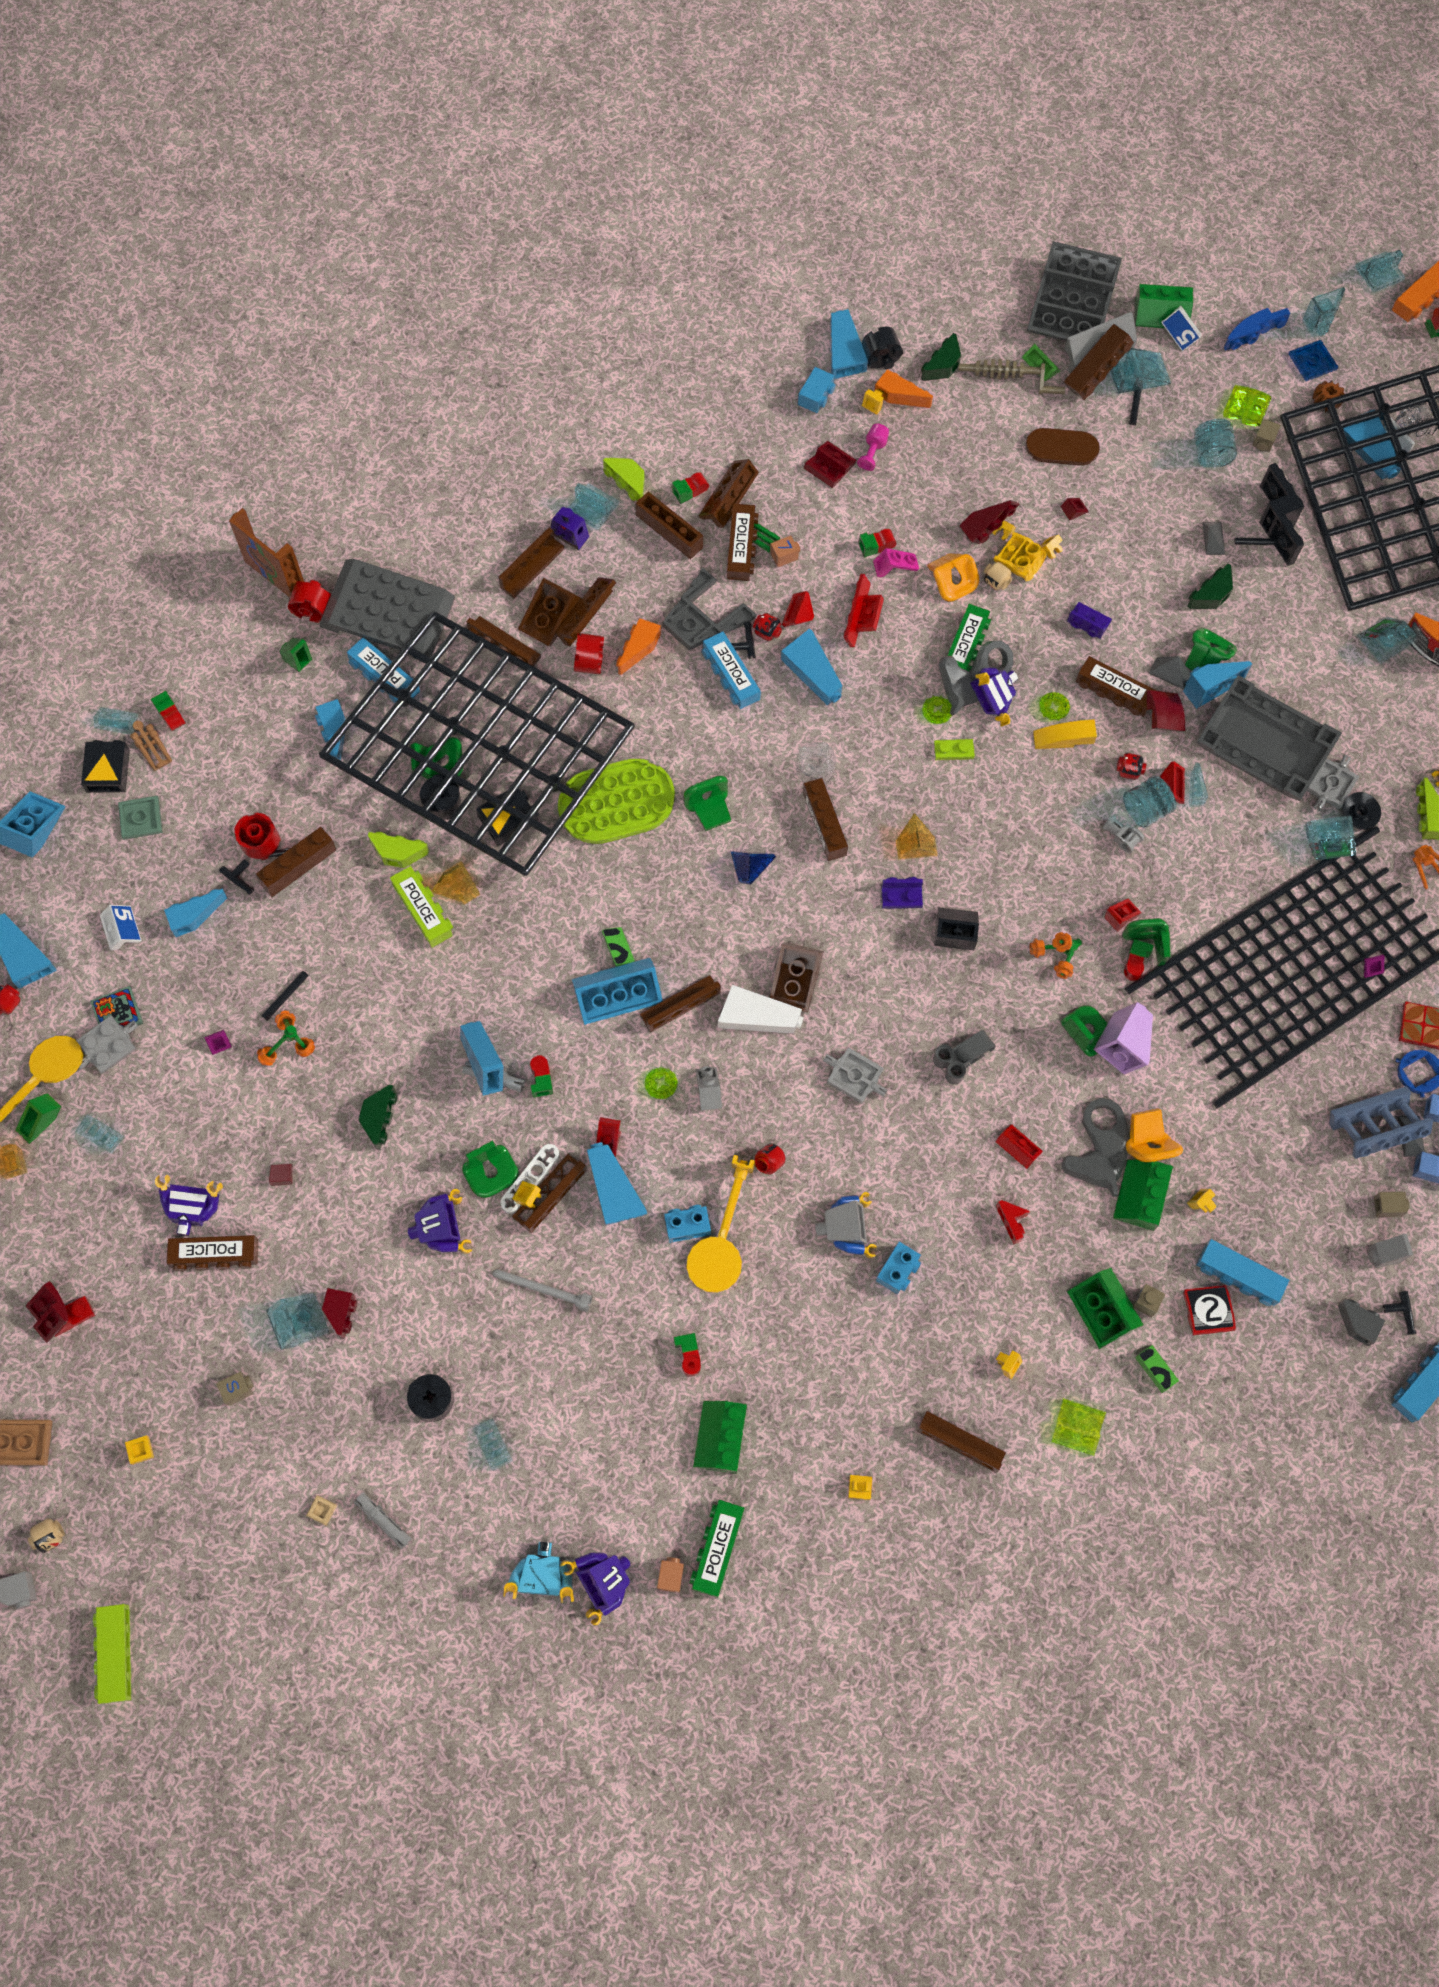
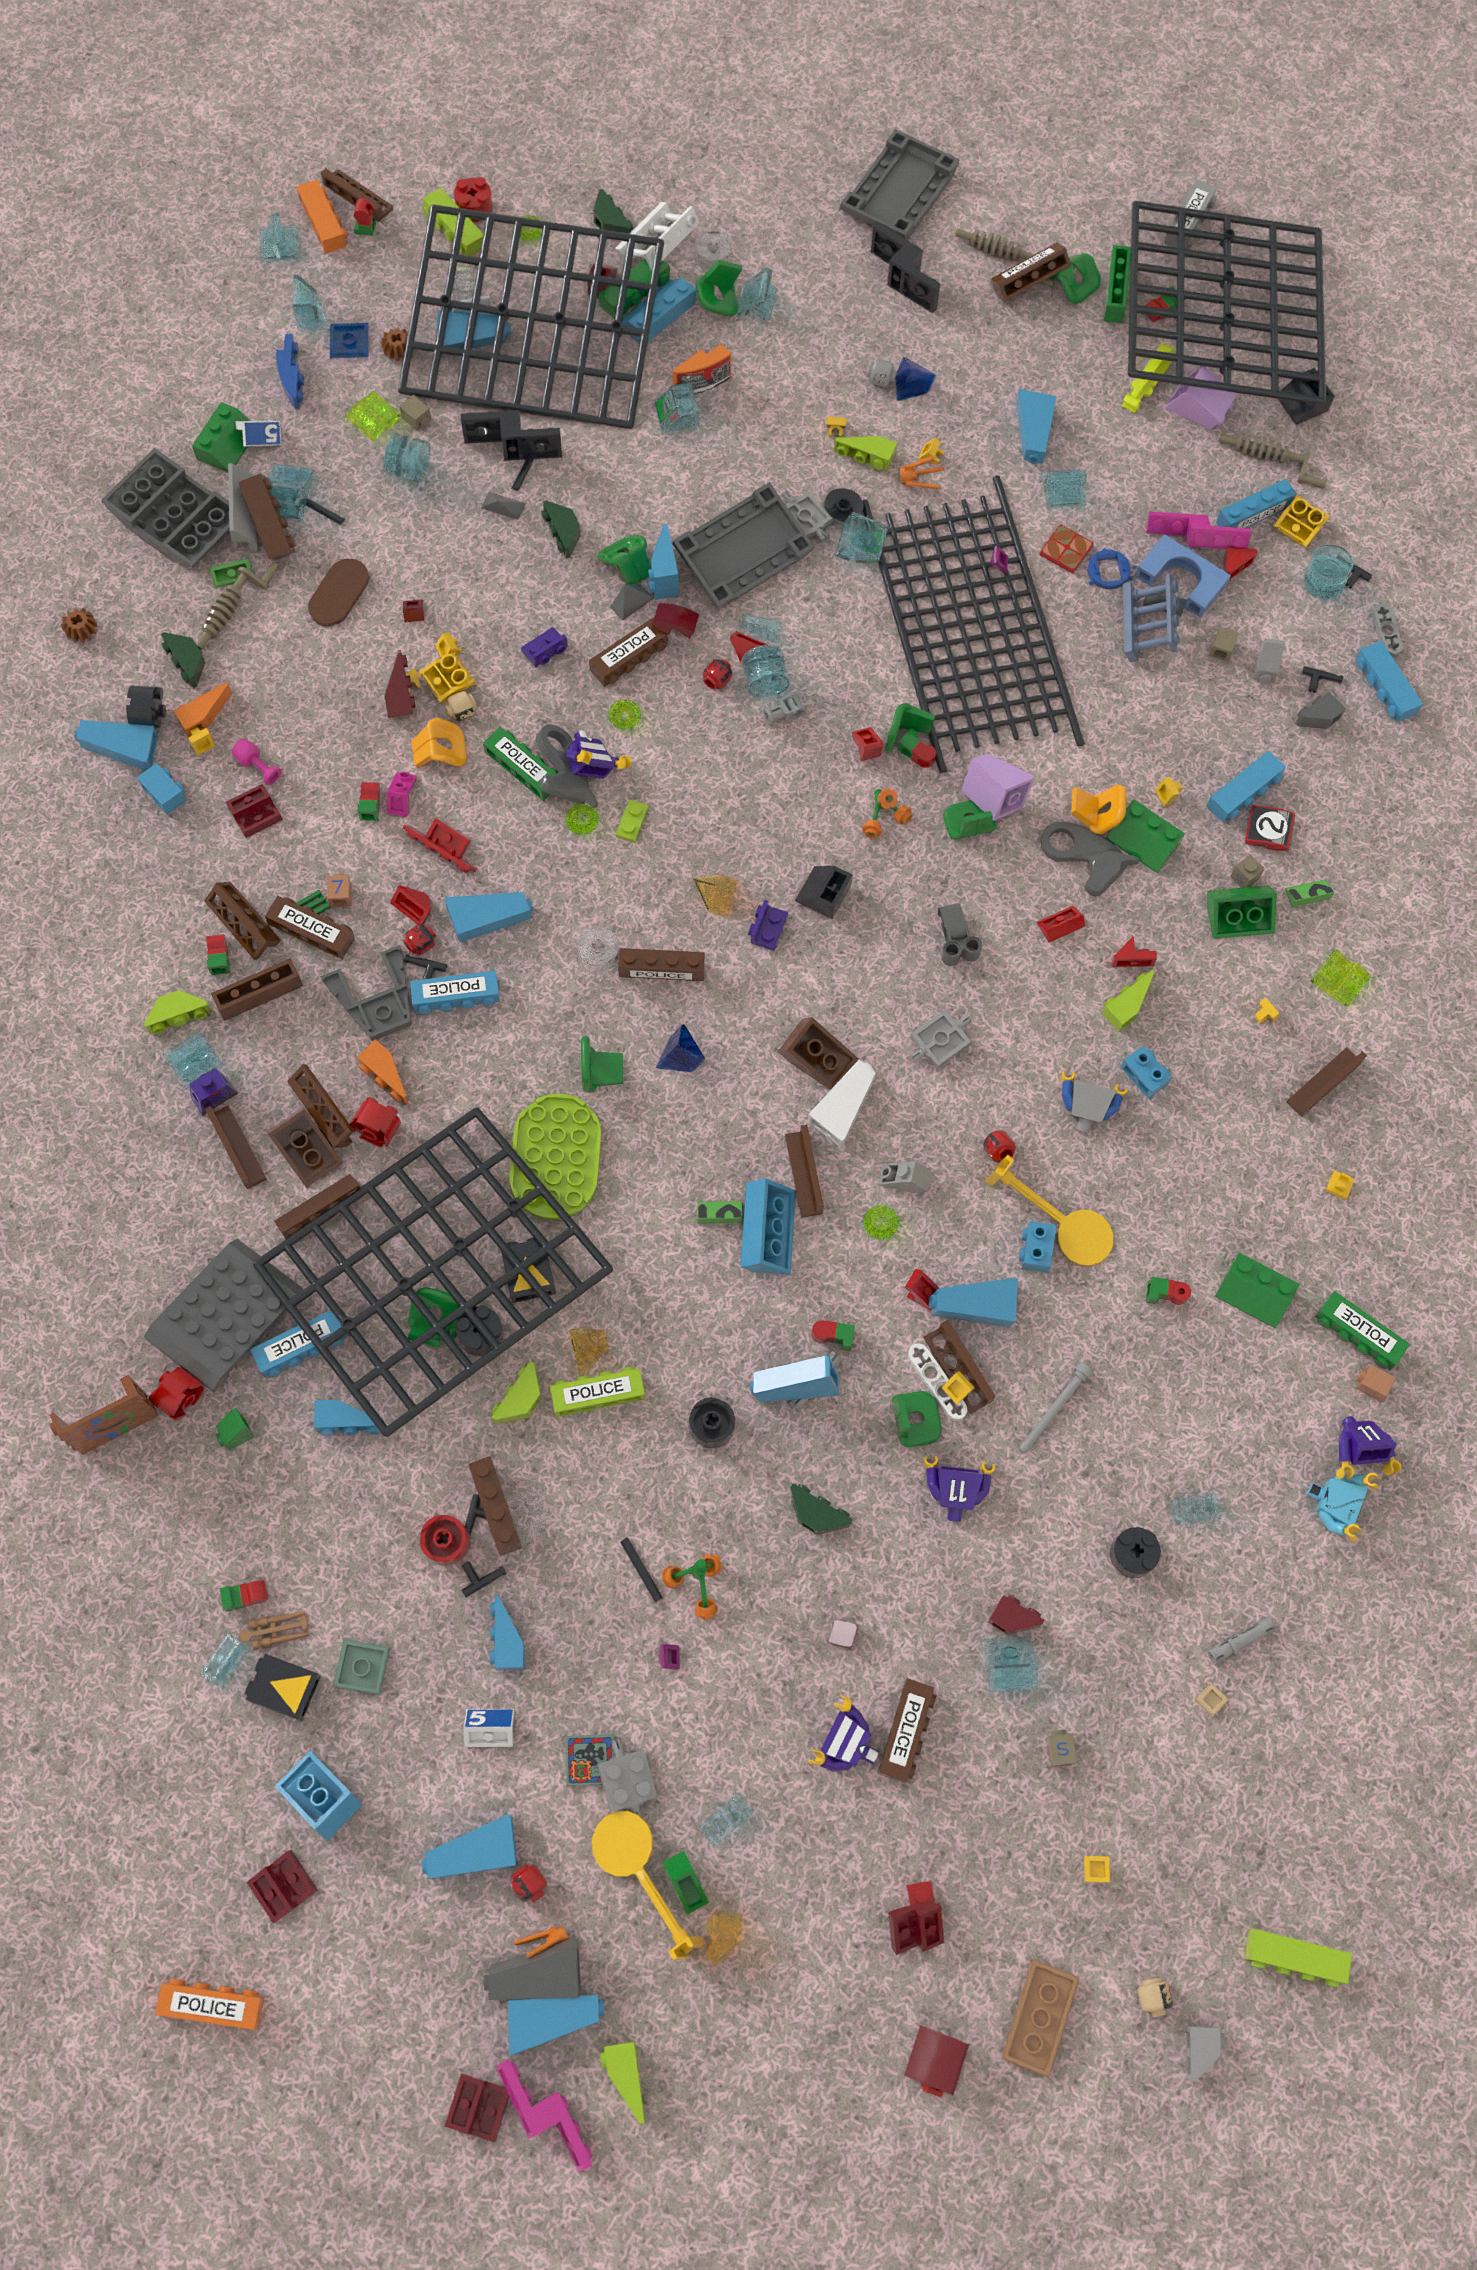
camera: 70 degrees left, 0 degrees up
(432, 996) = (720, 1413): none -> black brick
(936, 276) = (79, 625): none -> dark orange gear
(961, 1231) = (1125, 1007): none -> lime slope
(1065, 735) = (661, 716): yellow slope -> none

